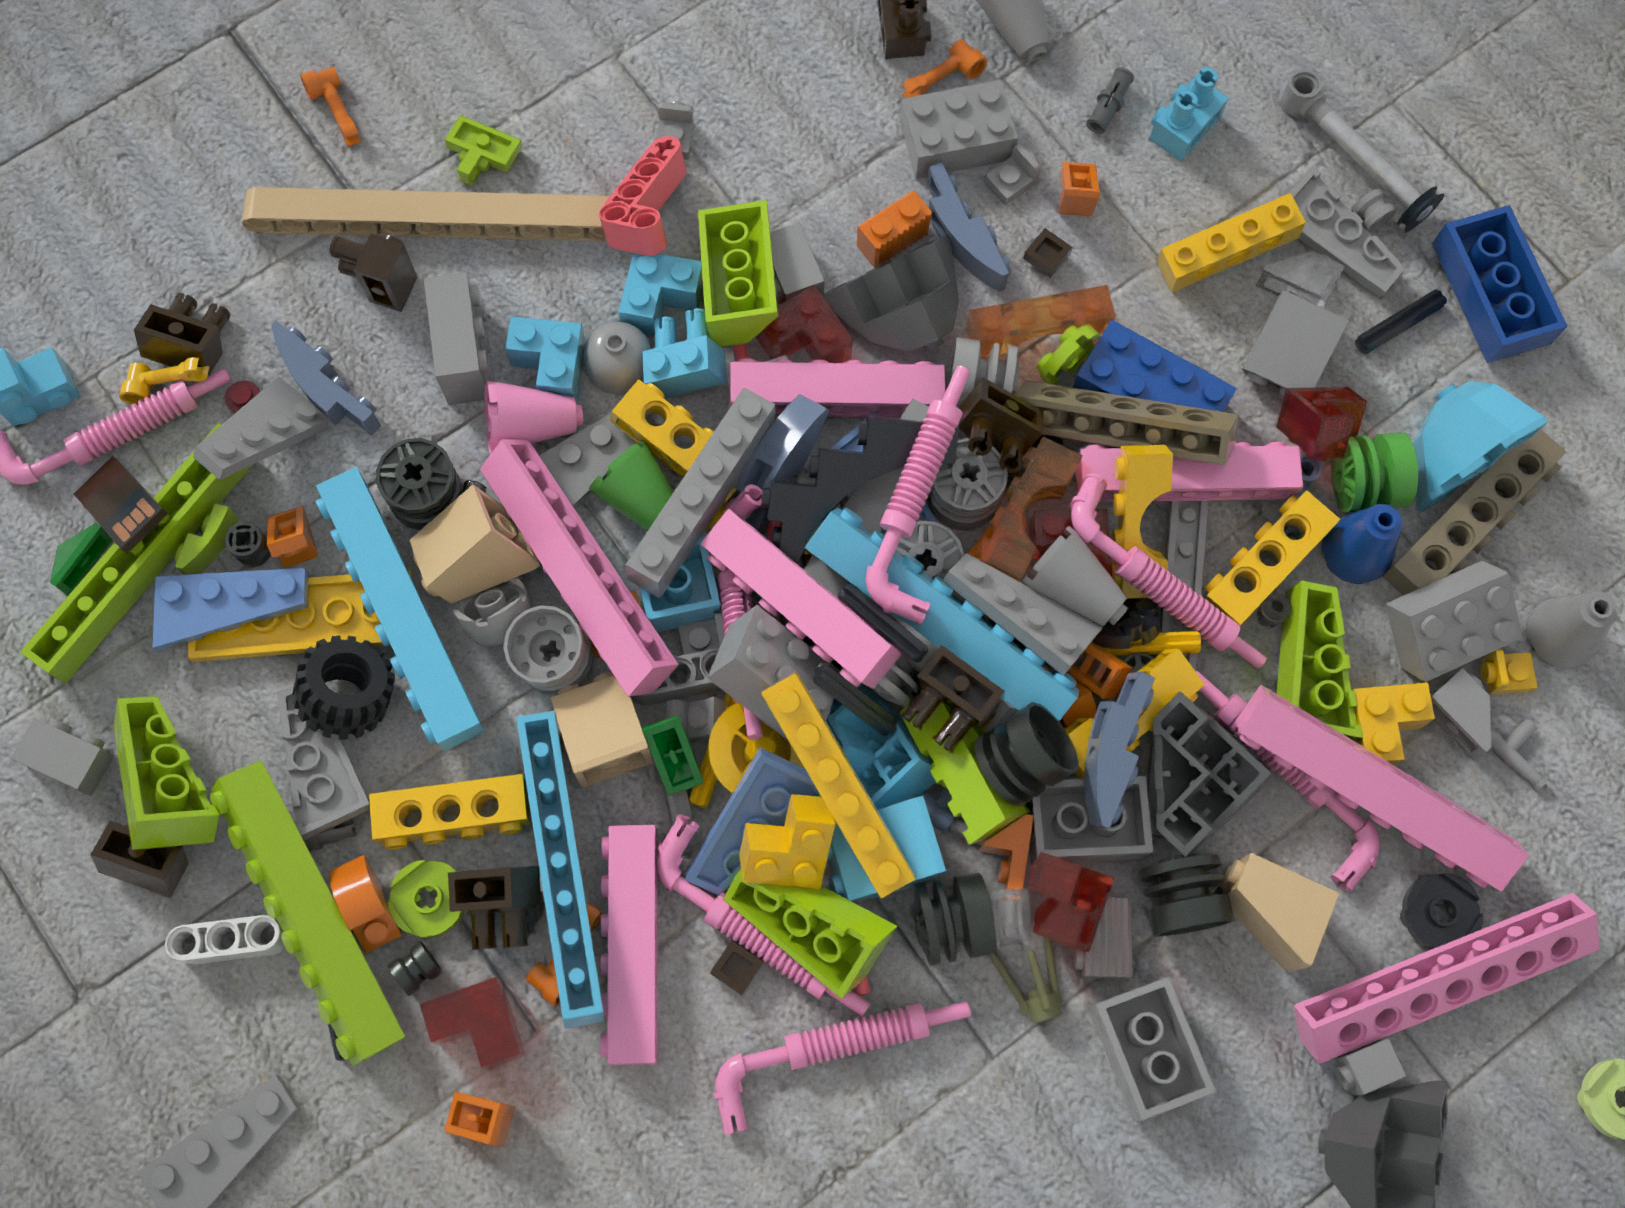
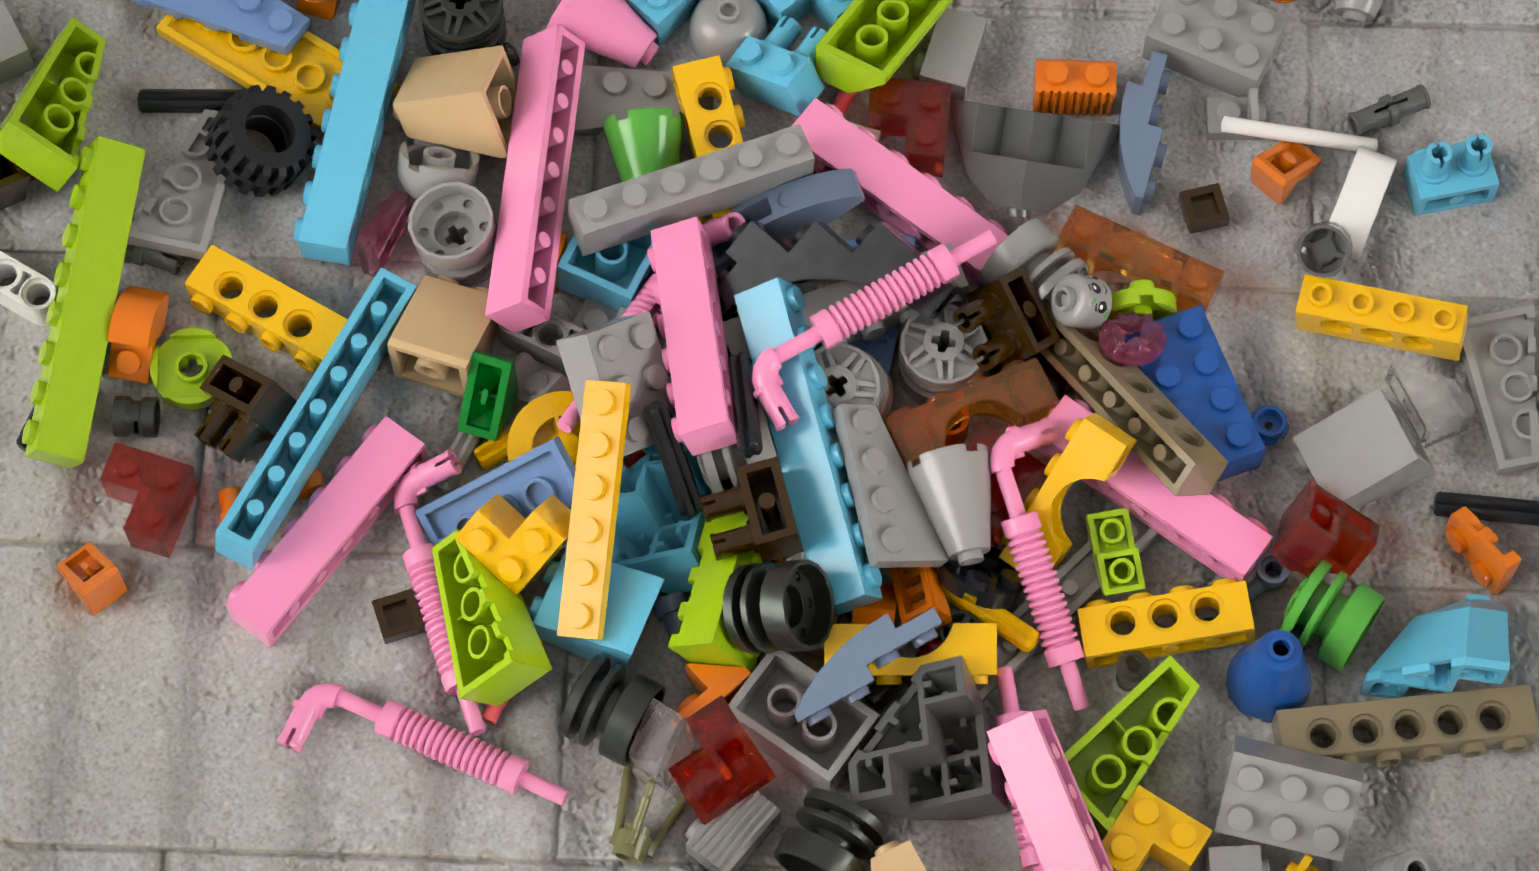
camera: 40 degrees right, 5 degrees down
(258, 694) = (182, 100): none -> black axle
(493, 698) = (383, 232): none -> clear pink wing
(1040, 374) = (1081, 301): none -> light grey head
(1070, 157) = (1297, 134): none -> white bar
(1079, 381) = (1137, 350): none -> clear pink gear
(1145, 177) = (1363, 196): none -> white beam
(1160, 221) = (1324, 249): none -> dark grey wheel
(1194, 536) = (1115, 552): none -> lime slope
(1217, 364) = (1276, 418): none -> blue plate
(1423, 355) = (1476, 542): none -> orange wing

